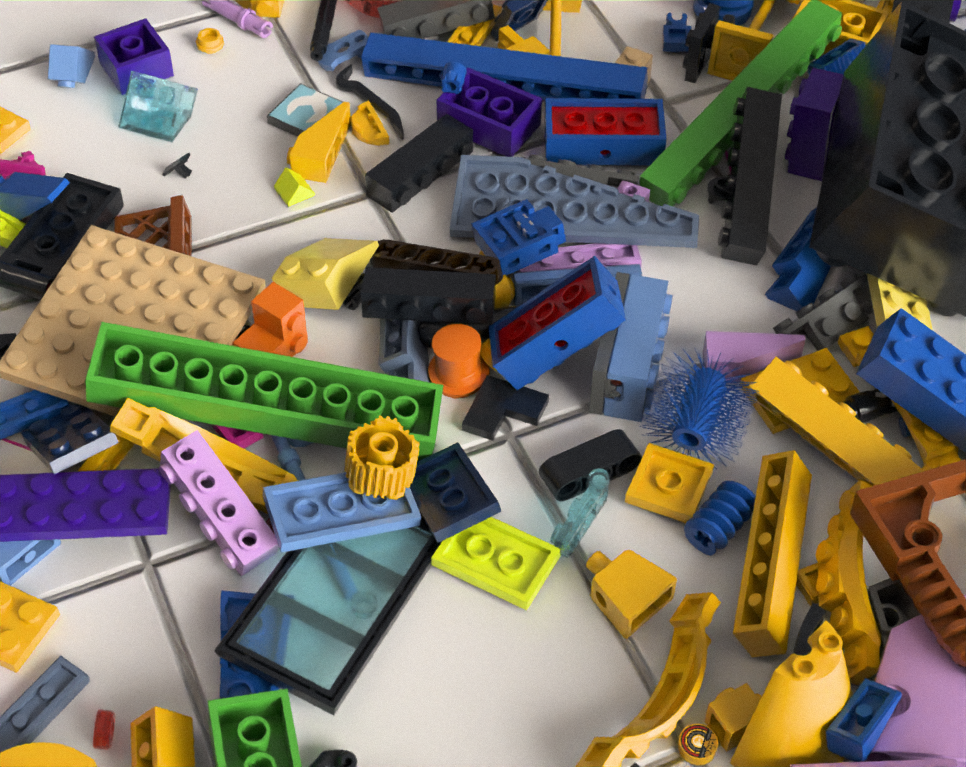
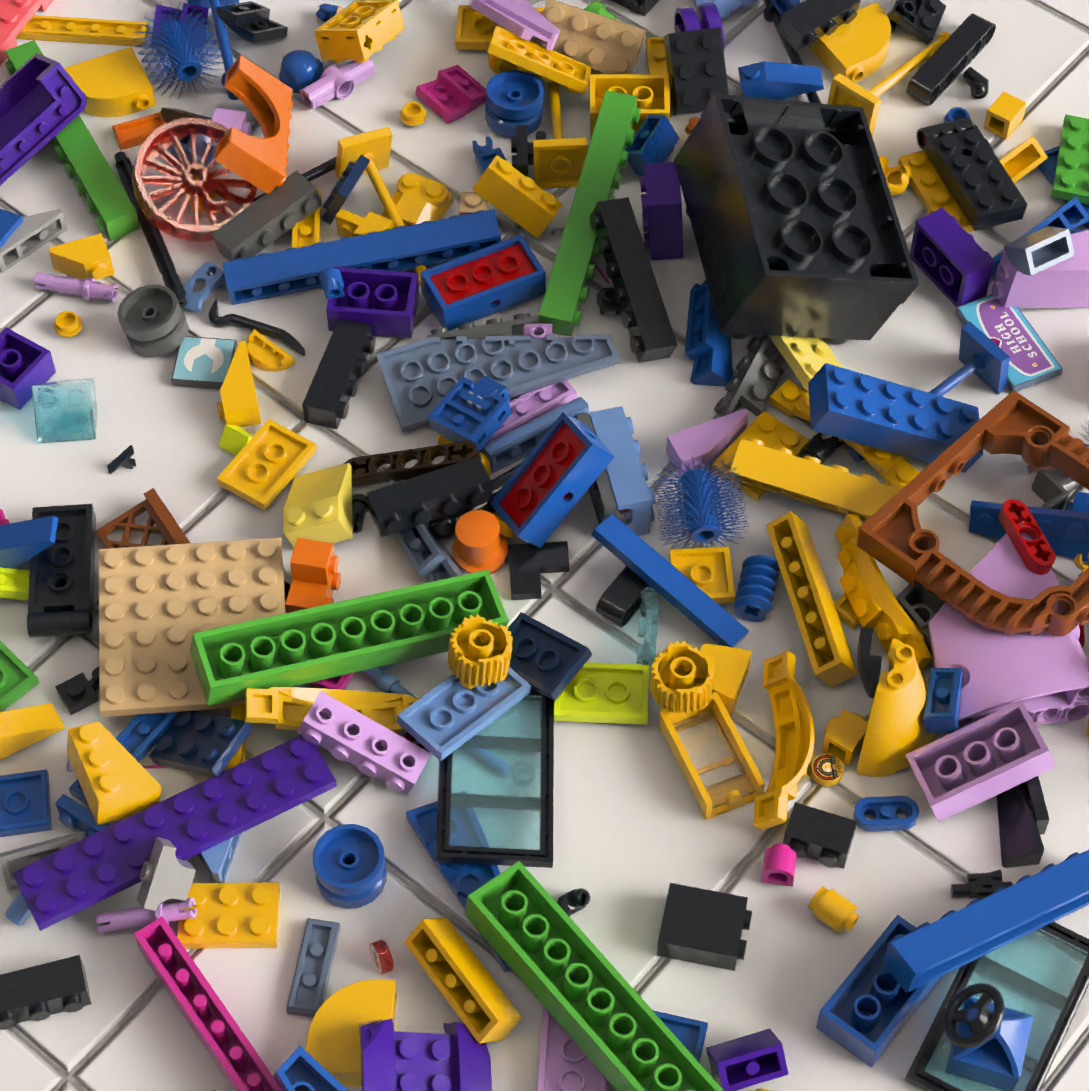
camera: 25 degrees left, 5 degrees up
(129, 620) = (350, 866): none -> blue wheel
(279, 59) = (153, 320): none -> dark grey wheel
(304, 217) = (266, 464): none -> yellow plate
(574, 671) = (712, 757): none -> door
(577, 573) = (682, 678): none -> yellow brick
(590, 42) = (420, 199): none -> yellow slope
(627, 475) = (669, 582): none -> blue tile
(678, 66) = (517, 196): none -> yellow brick

